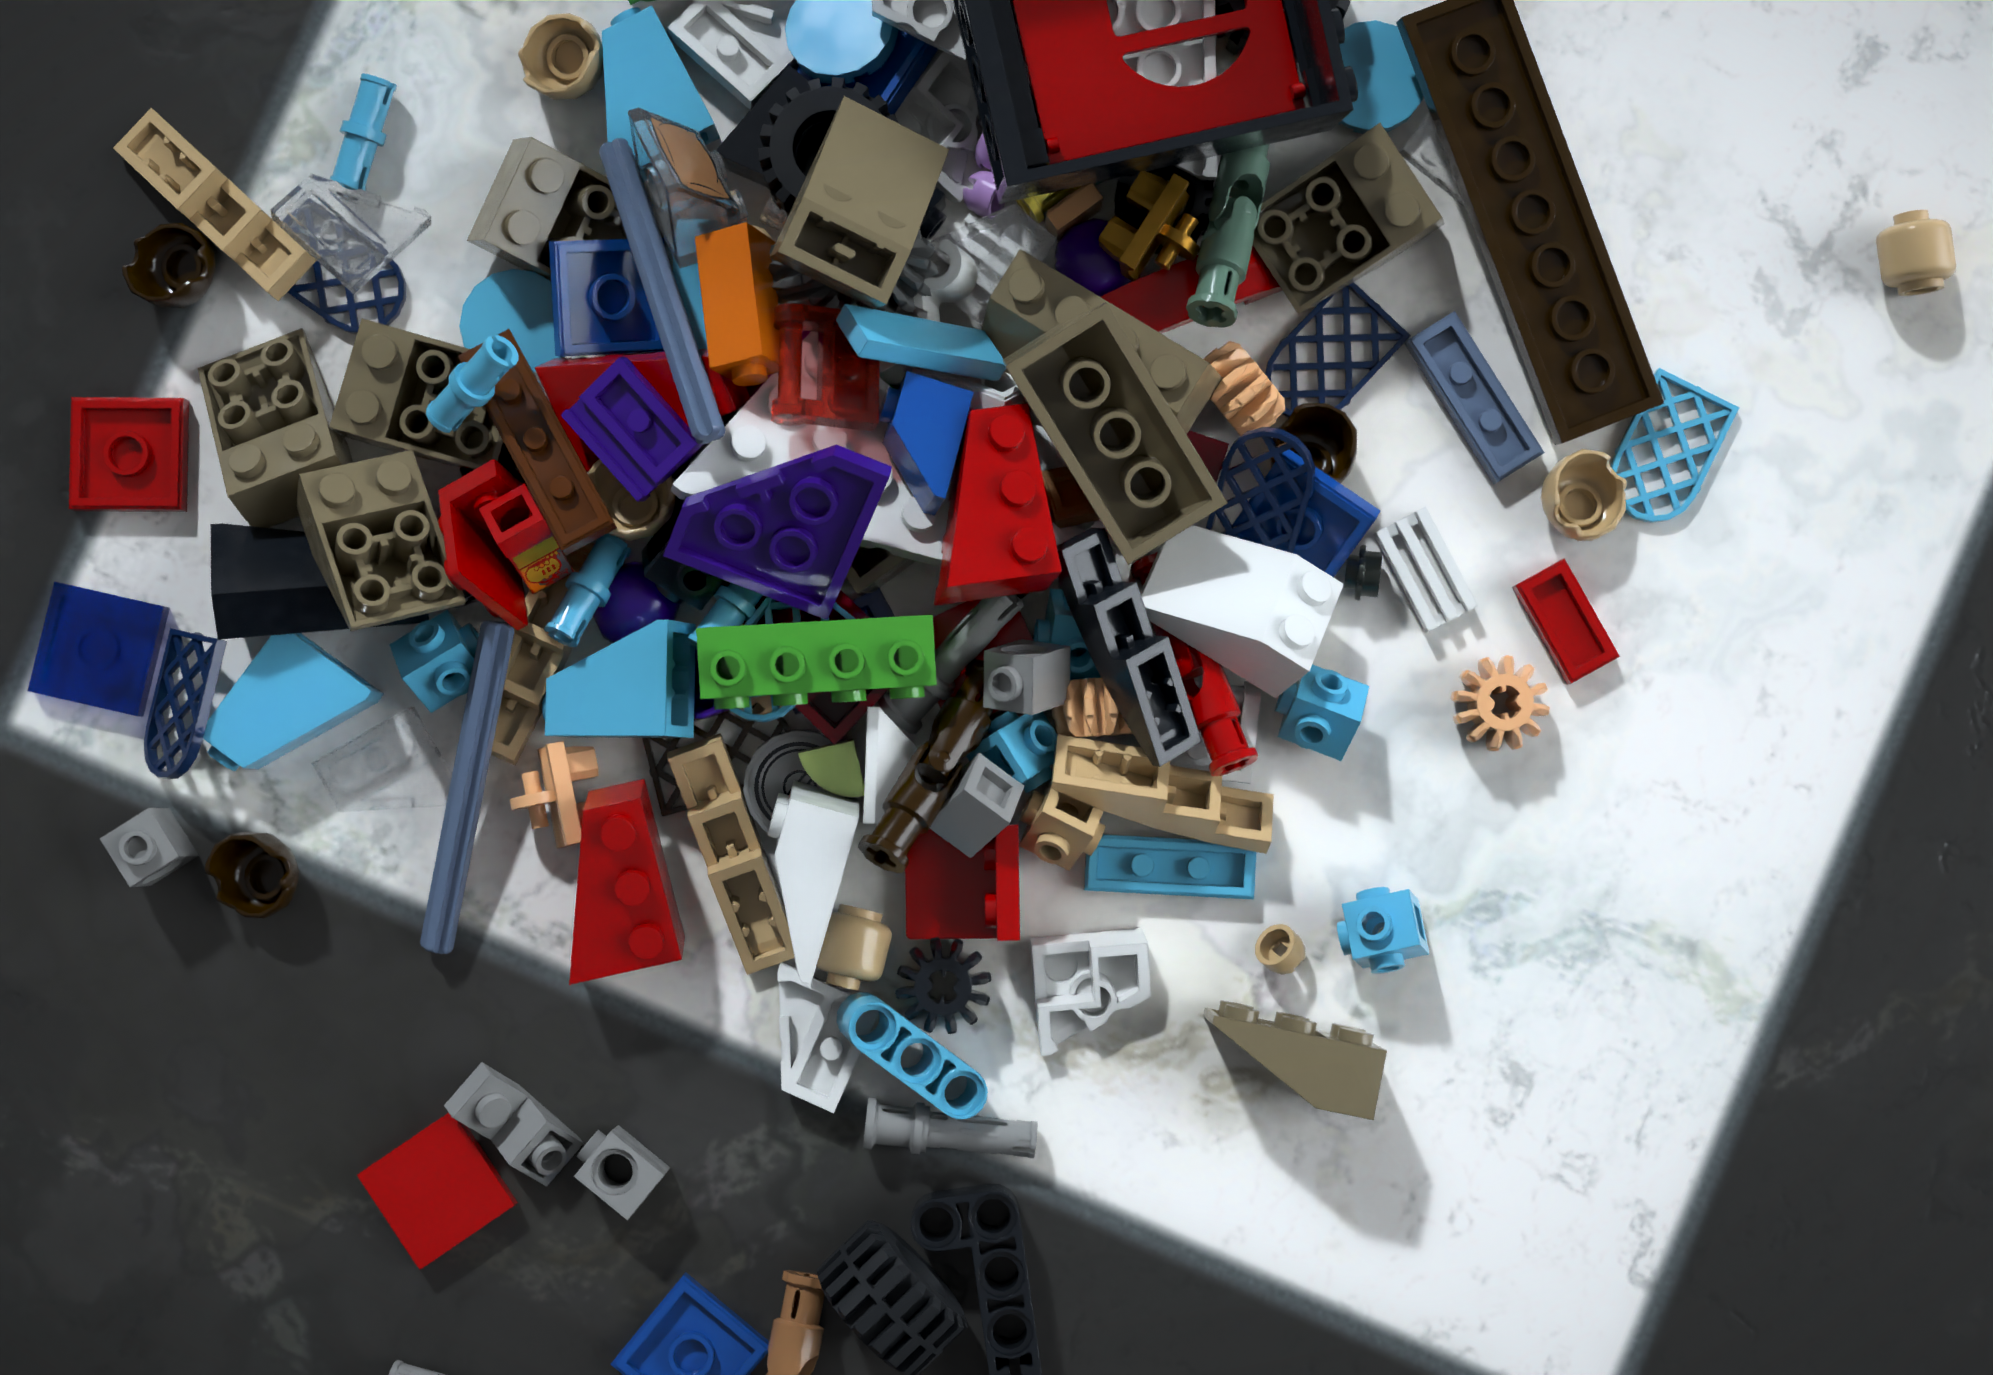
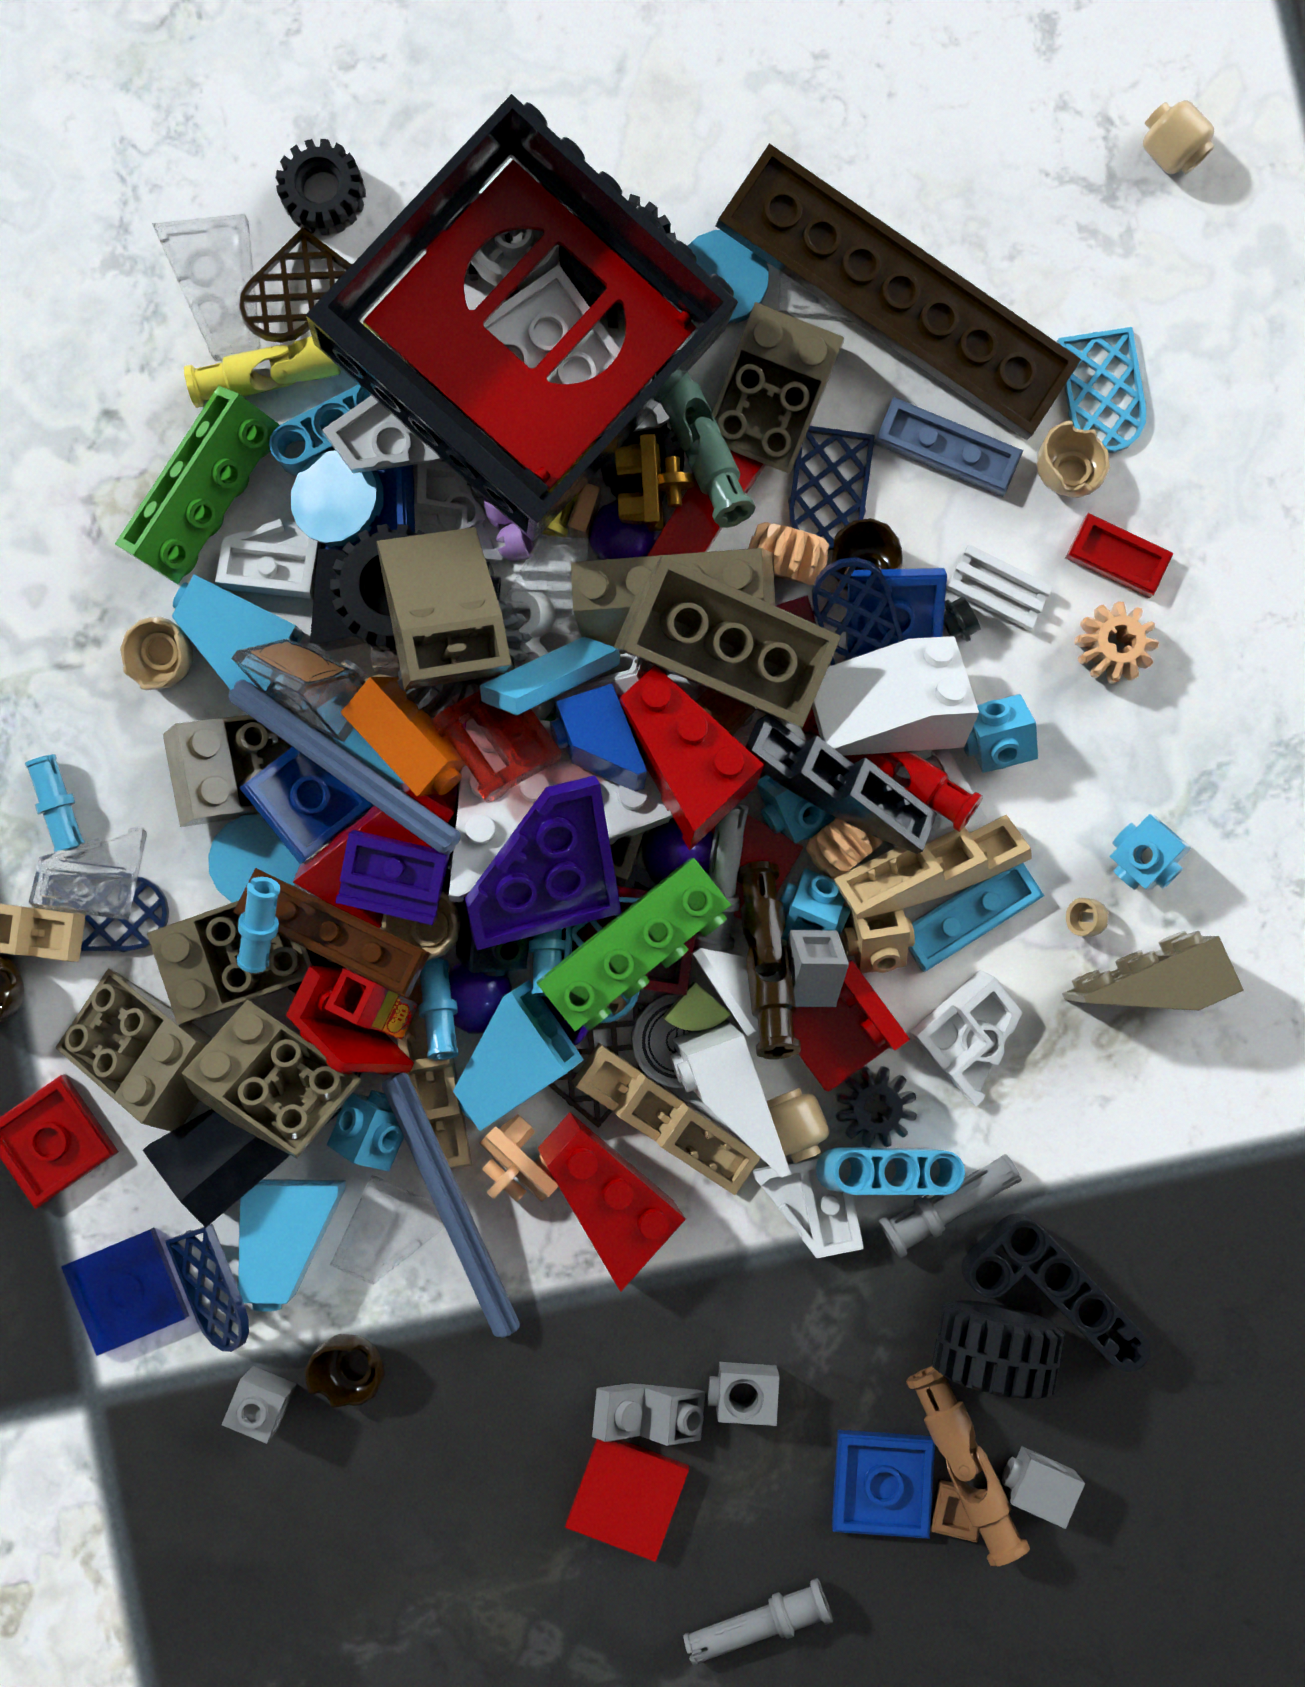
camera: 30 degrees left, 0 degrees up
(914, 595) = (666, 850): none -> dark purple hair
(1026, 676) = (785, 854): light grey brick -> none

